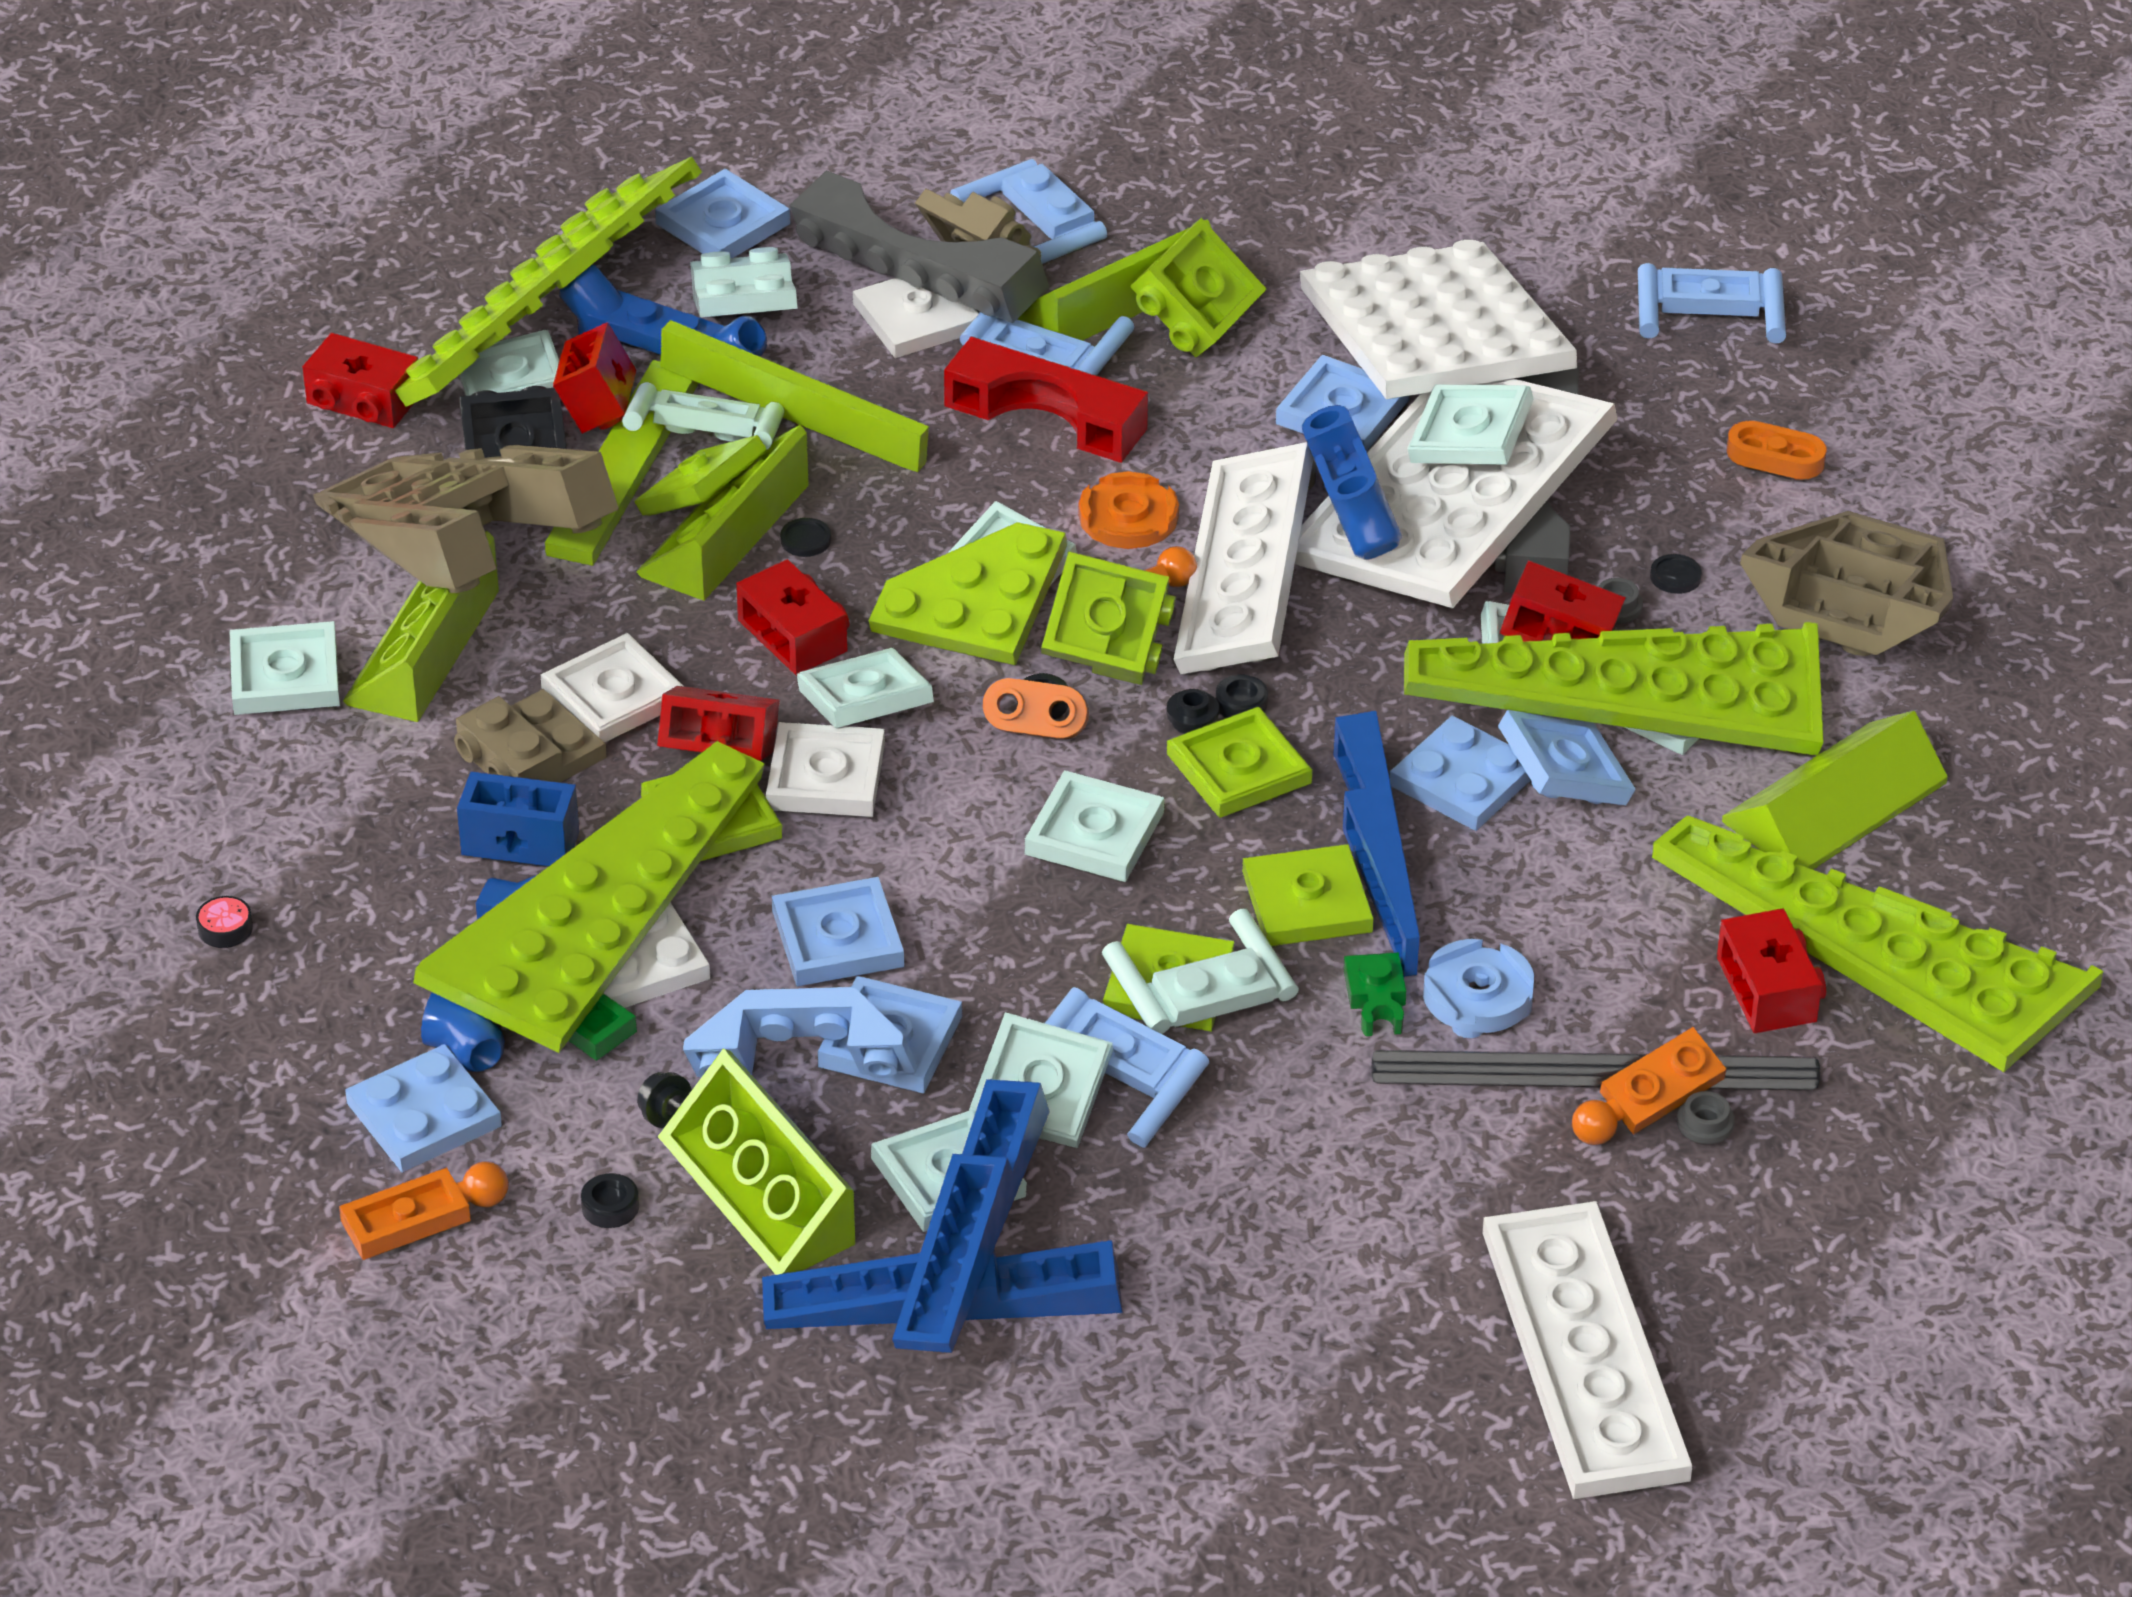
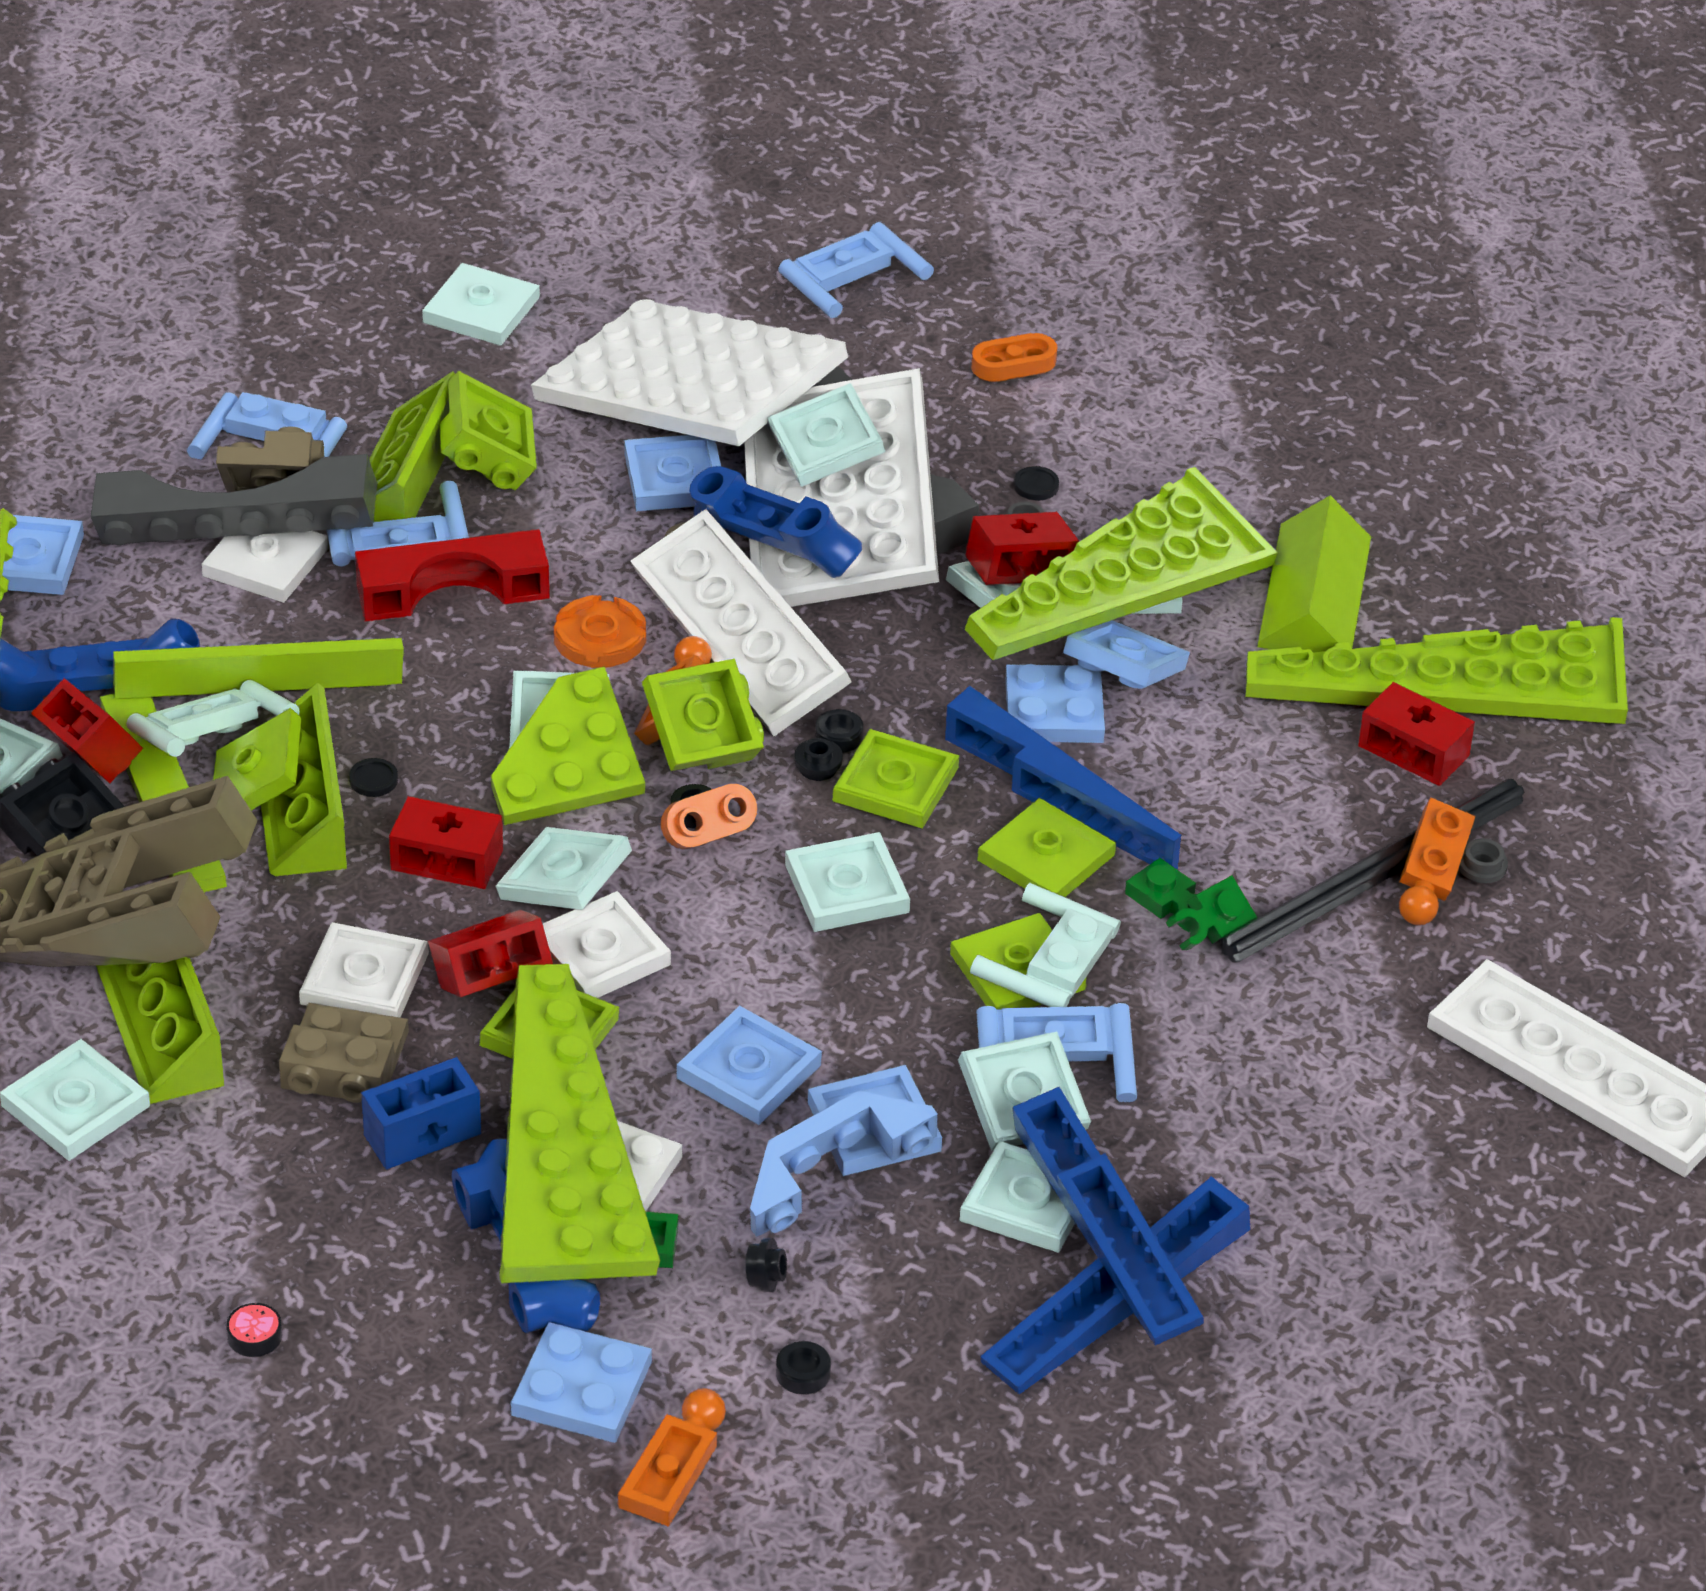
camera: 40 degrees left, 0 degrees up
(743, 283) = (116, 599): light aqua plate -> none
(761, 1169) = (900, 1272): lime slope -> none
(1340, 183) = (481, 304): none -> light aqua plate
(1390, 1024) = (1214, 913): none -> green plate
(1476, 1010) = (1217, 841): light blue plate -> none
(1855, 578) = (1183, 422): dark tan wedge -> none

